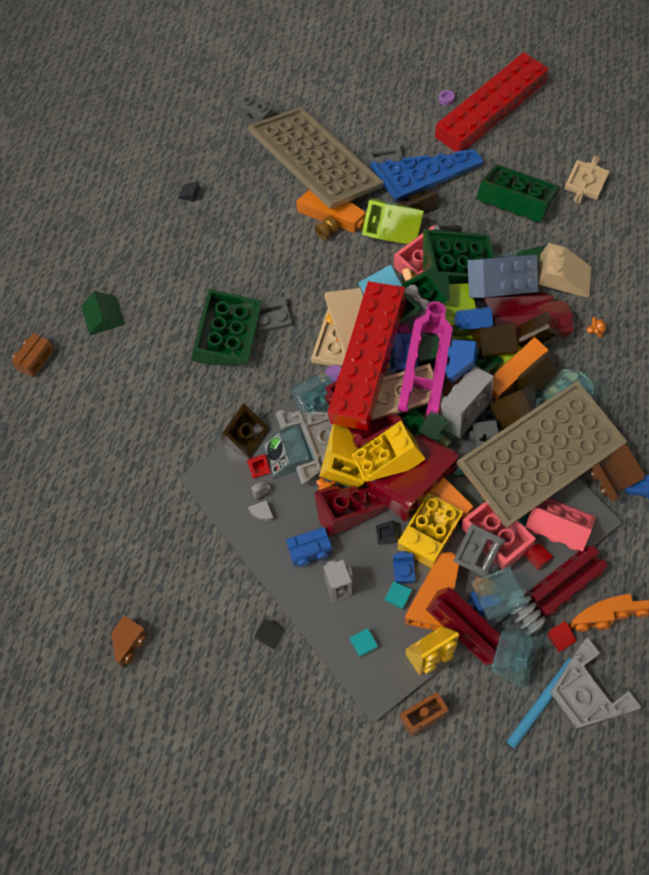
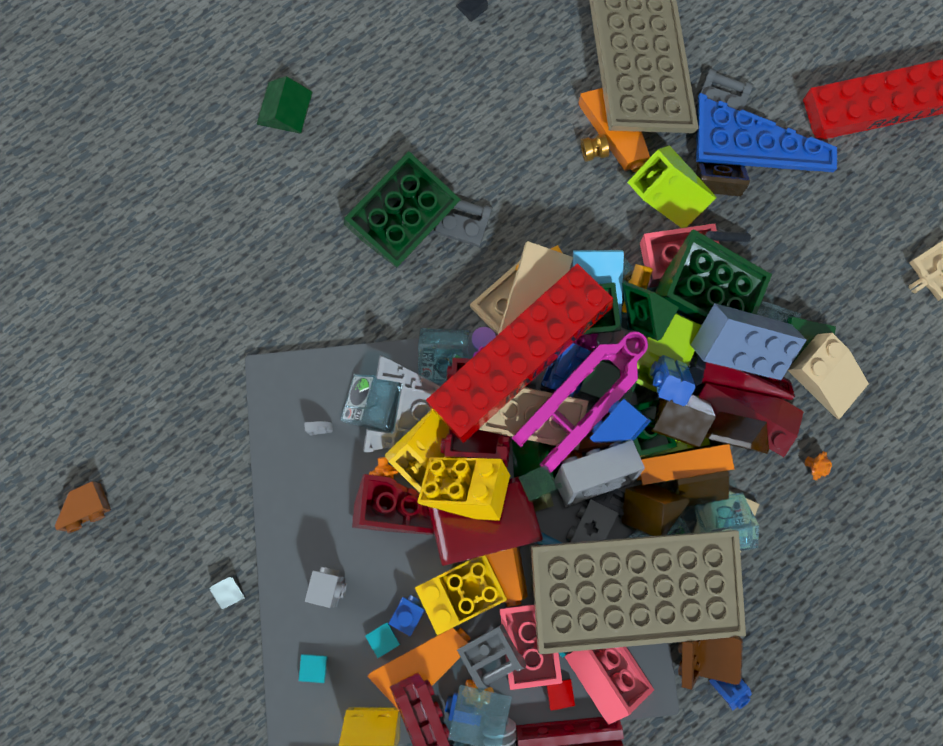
camera: 30 degrees right, 15 degrees up
(32, 355) = (180, 113): dark orange brick -> none
(244, 431) = (342, 350): dark brown slope -> none
(258, 465) = (334, 396): red slope -> none
(261, 511) = (303, 452): light grey tile -> none
(309, 547) = (323, 527): blue brick -> none
(388, 532) = (420, 563): black slope -> none
(412, 291) = (625, 303): light grey piece -> none
(446, 97) = (853, 54): medium lavender tile -> none
(517, 192) = (849, 234): dark green slope -> none

